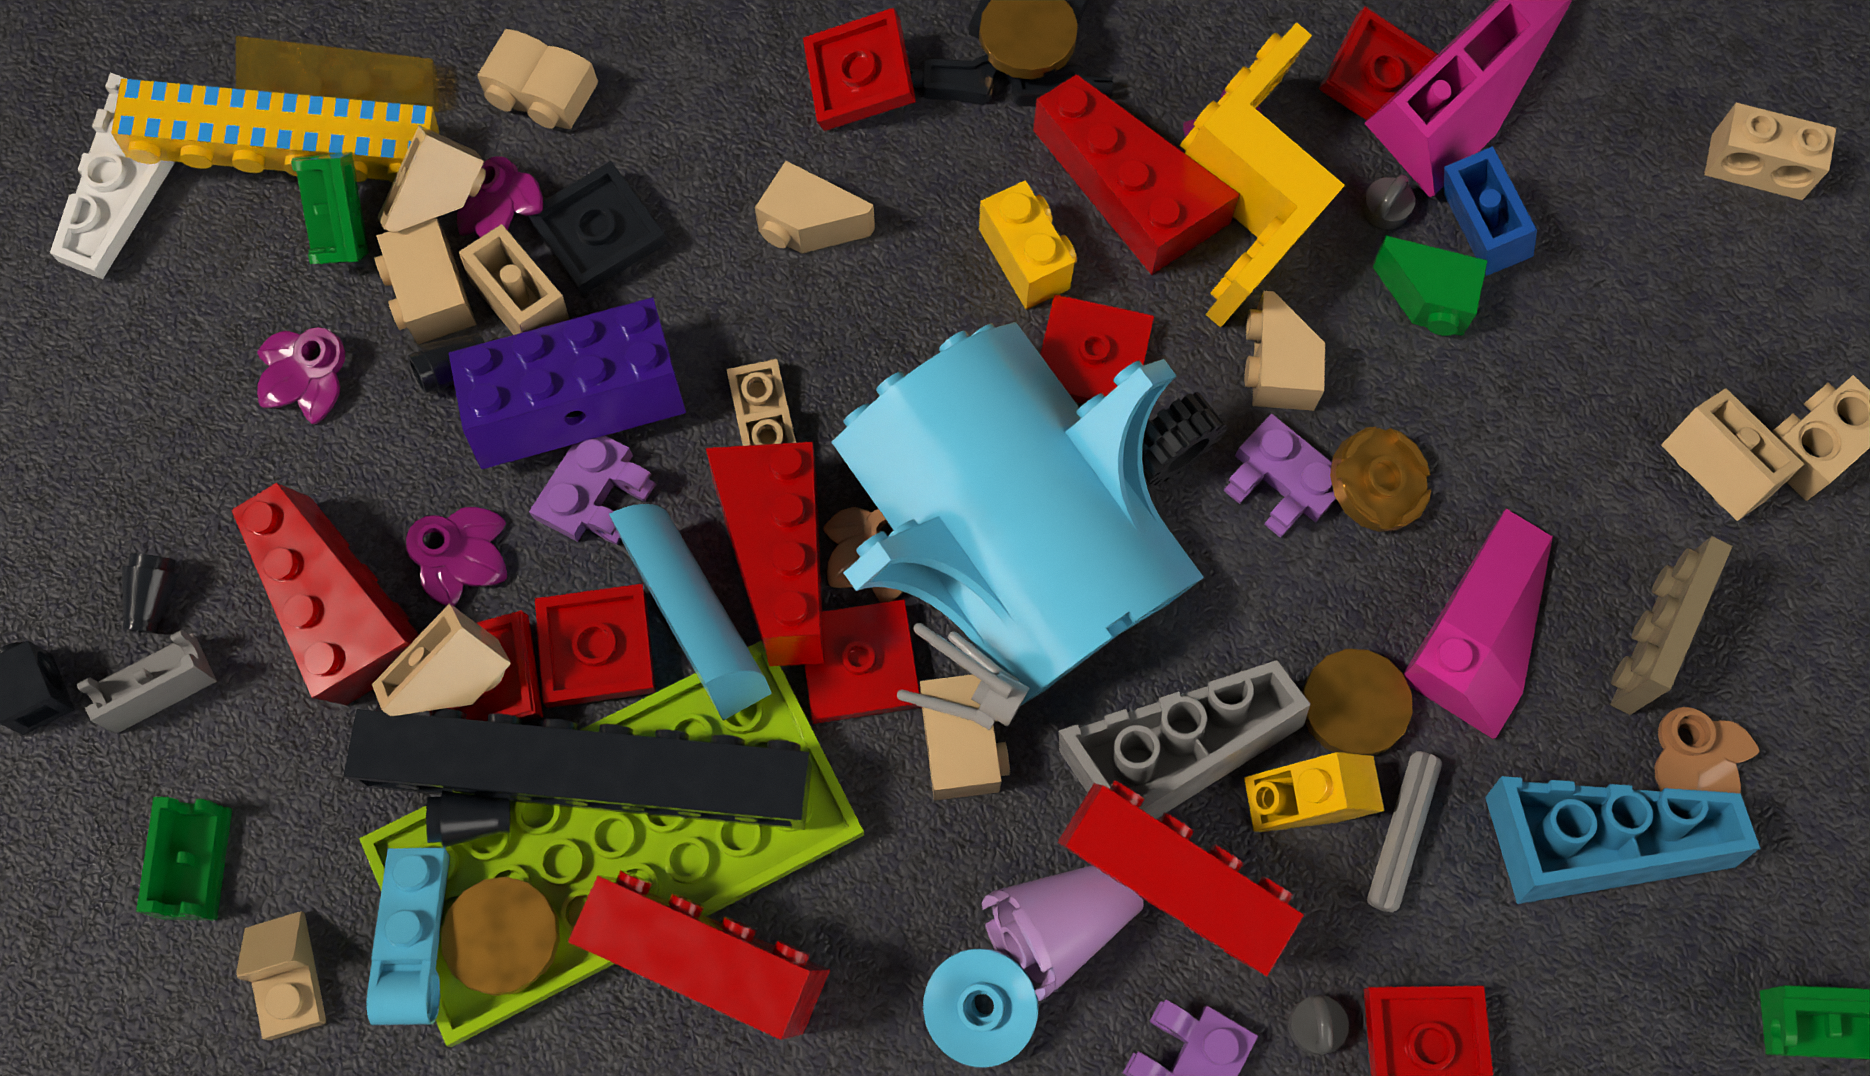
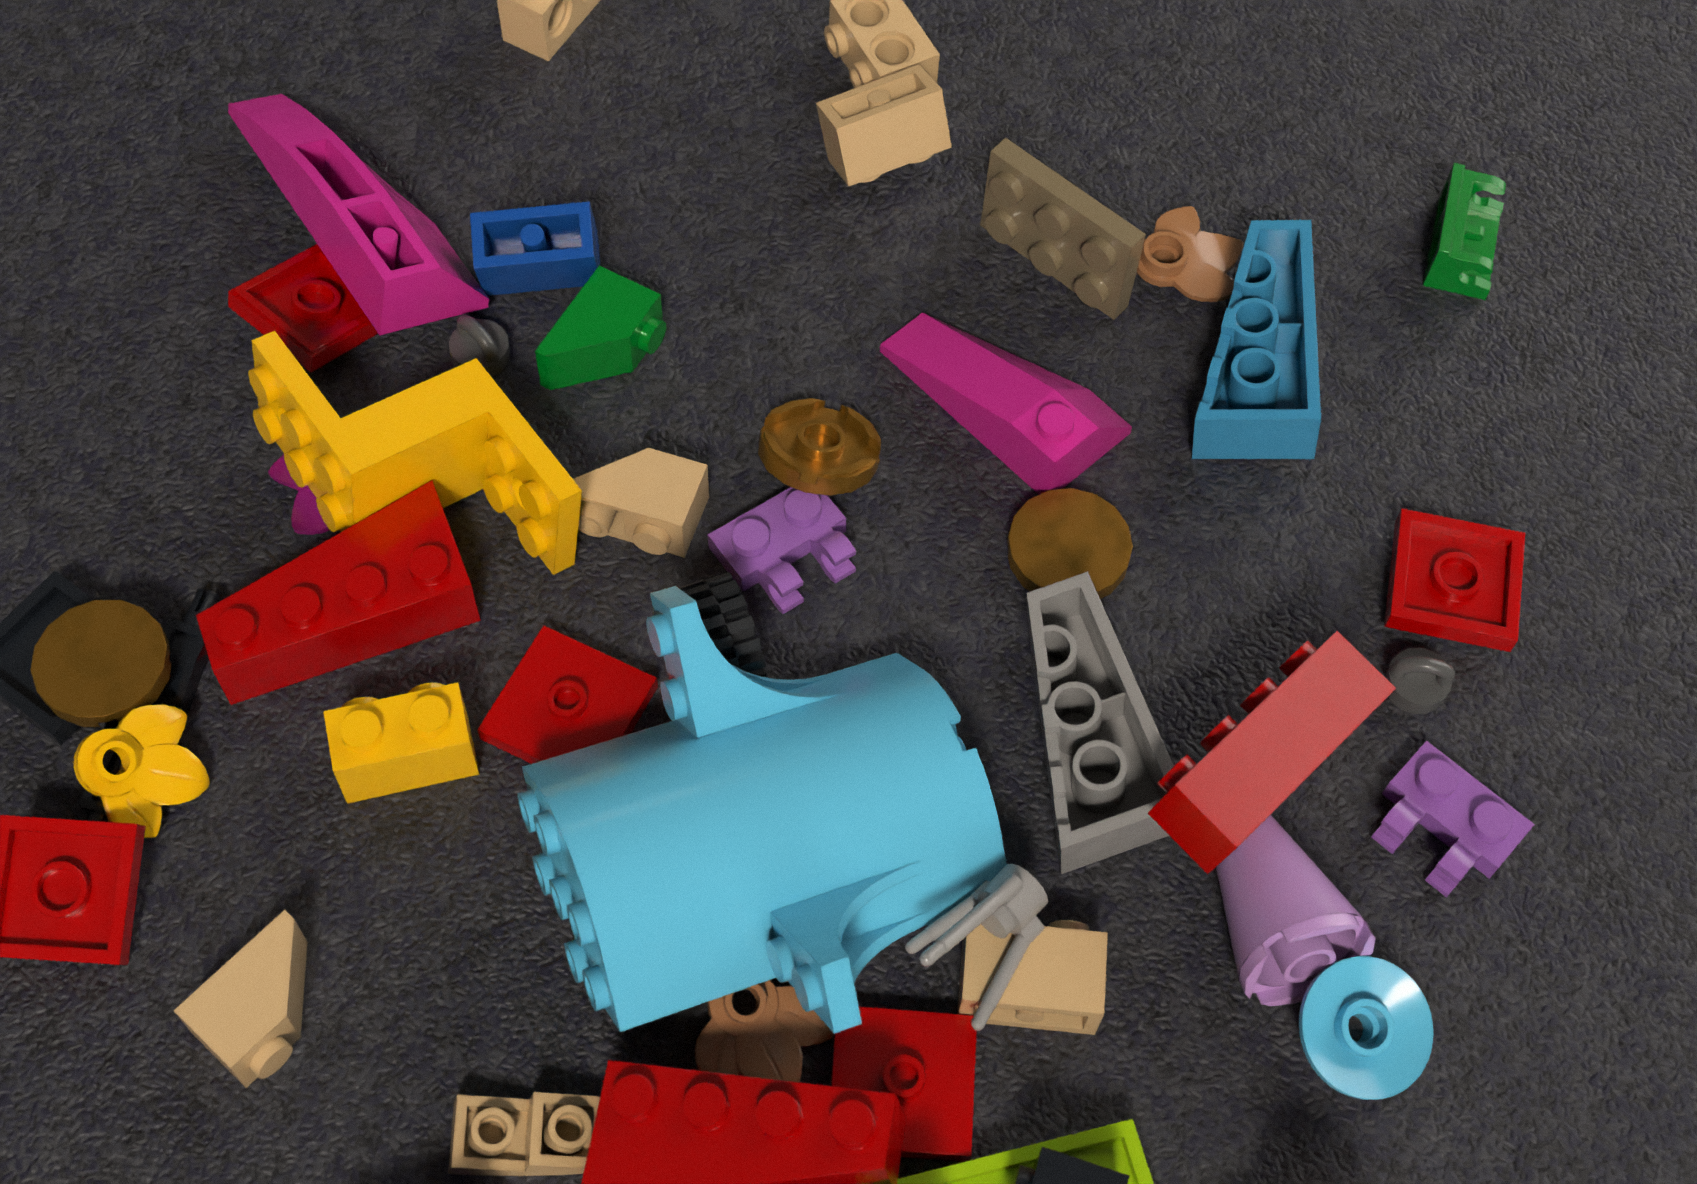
camera: 80 degrees left, 10 degrees down
(962, 92) = (152, 766): none -> yellow plate
(1314, 792) = (1169, 612): yellow slope -> none
(1404, 832) = (1221, 539): light grey axle -> none

